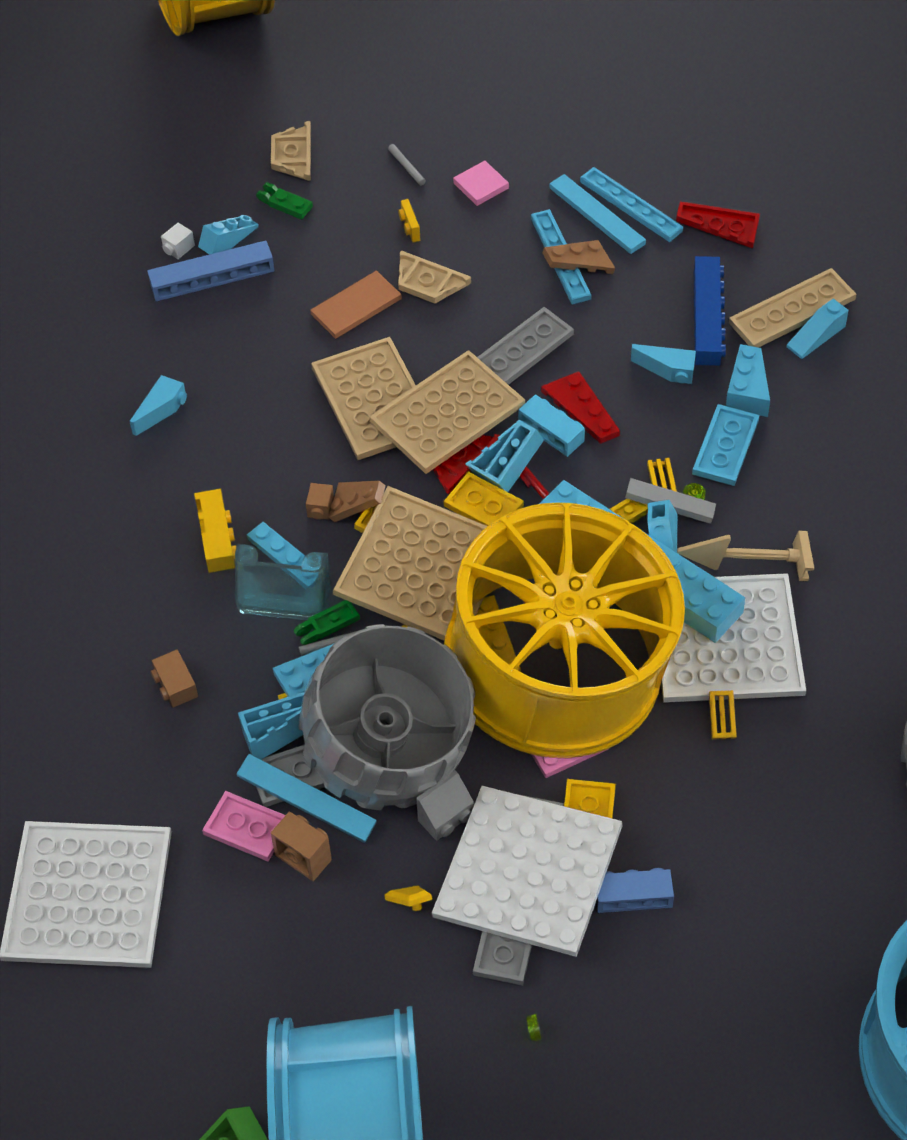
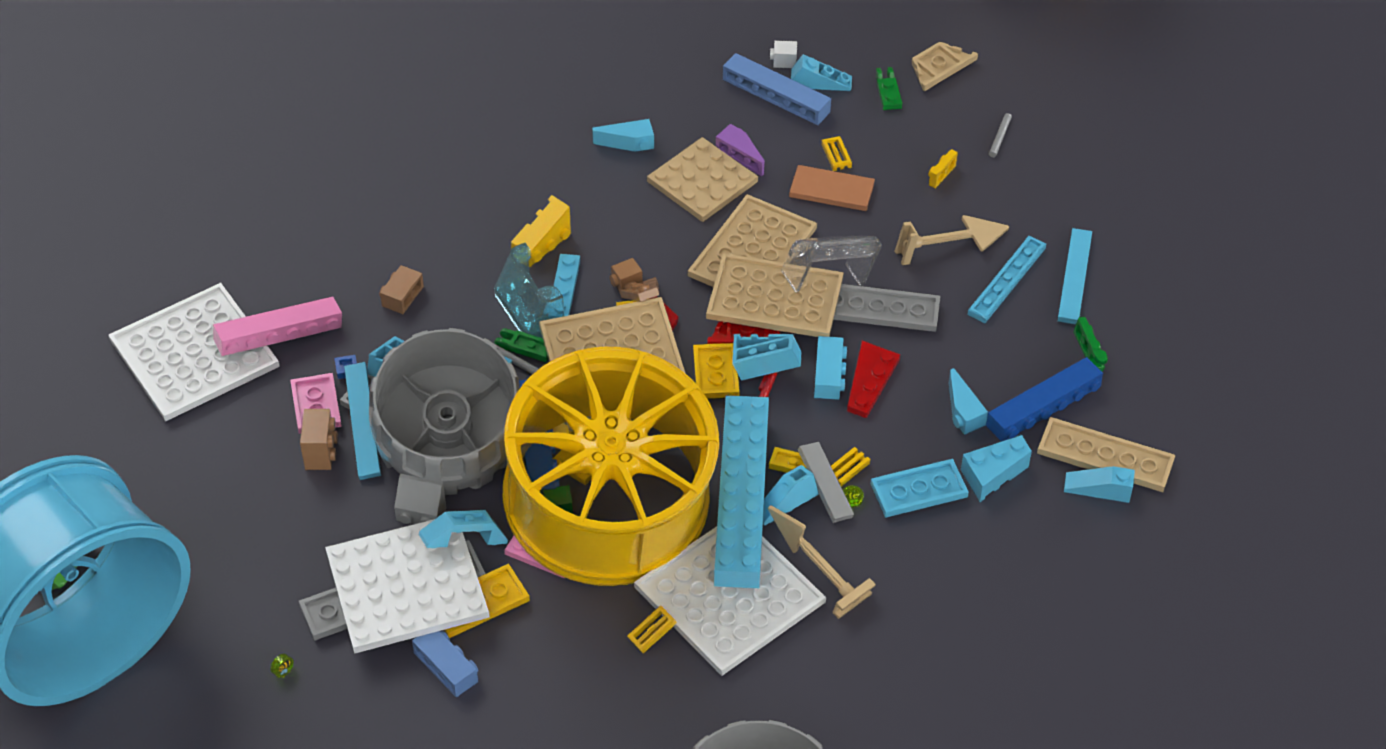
camera: 50 degrees right, 5 degrees down
(131, 803) = (277, 326): none -> bright pink brick
(224, 776) = (343, 361): none -> blue plate
(252, 336) = (739, 147): none -> medium lavender slope
(258, 384) = (702, 179): none -> tan plate
(319, 280) = (839, 164): none -> yellow tile
(409, 896) = (333, 530): yellow piece -> none
(428, 279) = (894, 209): tan wing -> none
(457, 334) = (857, 249): none -> clear windscreen
(481, 183) = (1029, 188): bright pink tile -> none
(498, 238) = (981, 230): none -> tan piece
(508, 790) = (439, 530): none -> medium azure slope
(581, 254) = (1017, 289): medium nougat wing -> none
(631, 204) = (1108, 292): medium azure tile -> none
(676, 248) = (1090, 346): none -> green hinge
(722, 222) = (1150, 359): red wing -> none

